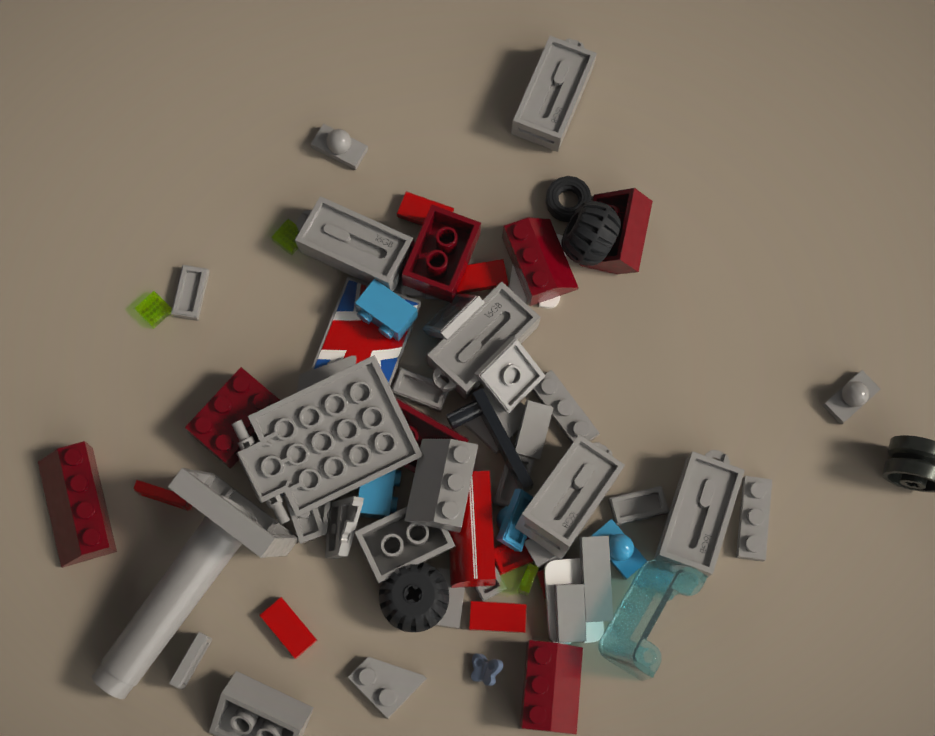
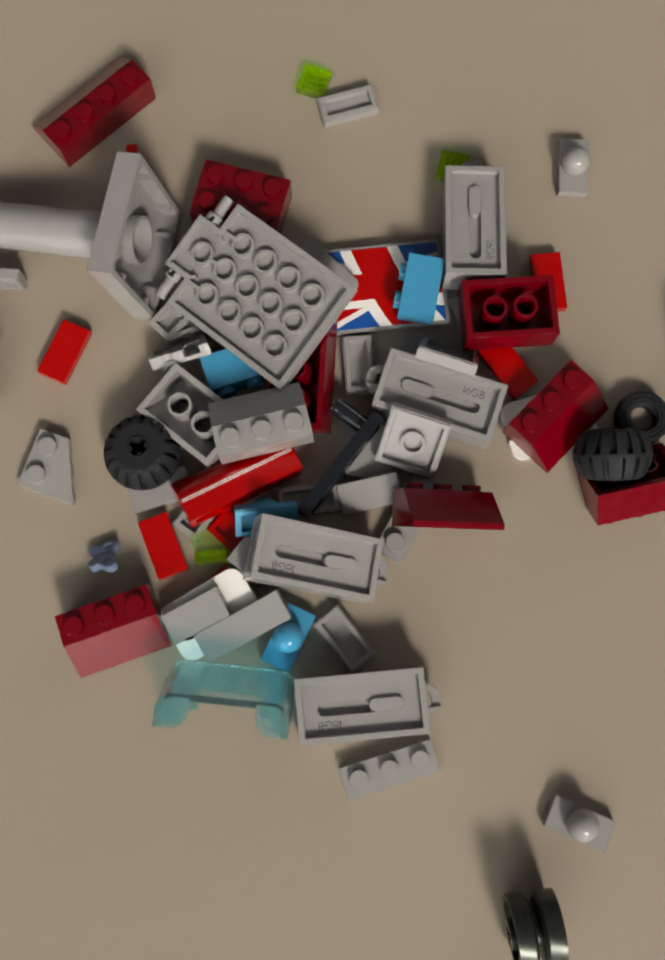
camera: 70 degrees right, 5 degrees up
(576, 376) = (445, 507): none -> dark red slope

